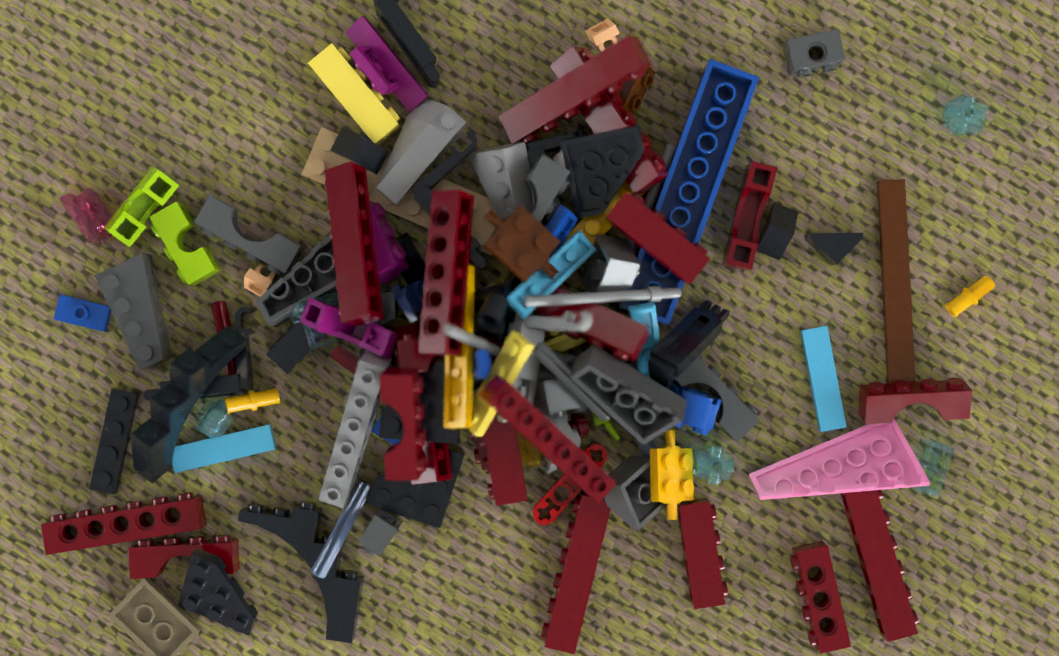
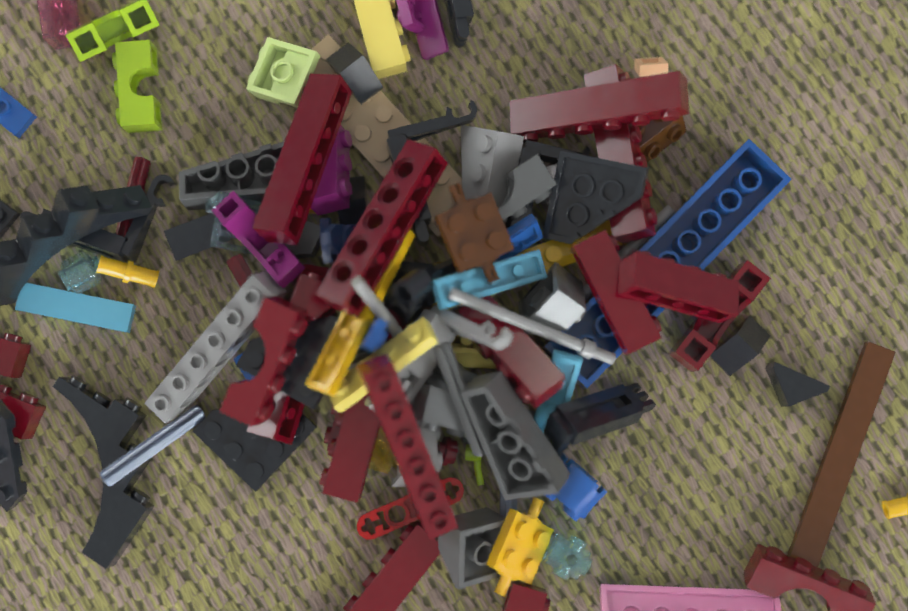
camera: 25 degrees right, 5 degrees down
(135, 304) = (58, 128): dark grey wedge -> none
(221, 219) = (186, 80): dark grey arch -> none
(256, 282) = (190, 156): light nougat tile -> none
(299, 178) = (282, 72): none -> yellowish green plate
(379, 532) = (190, 466): dark grey brick -> none
(421, 143) = (415, 96): light grey wedge -> none
(705, 211) = (678, 287): none -> dark red brick
(734, 415) = (613, 515): dark grey arch -> none
(823, 378) = (722, 520): medium azure tile -> none
(828, 46) = (873, 182): dark grey brick -> none

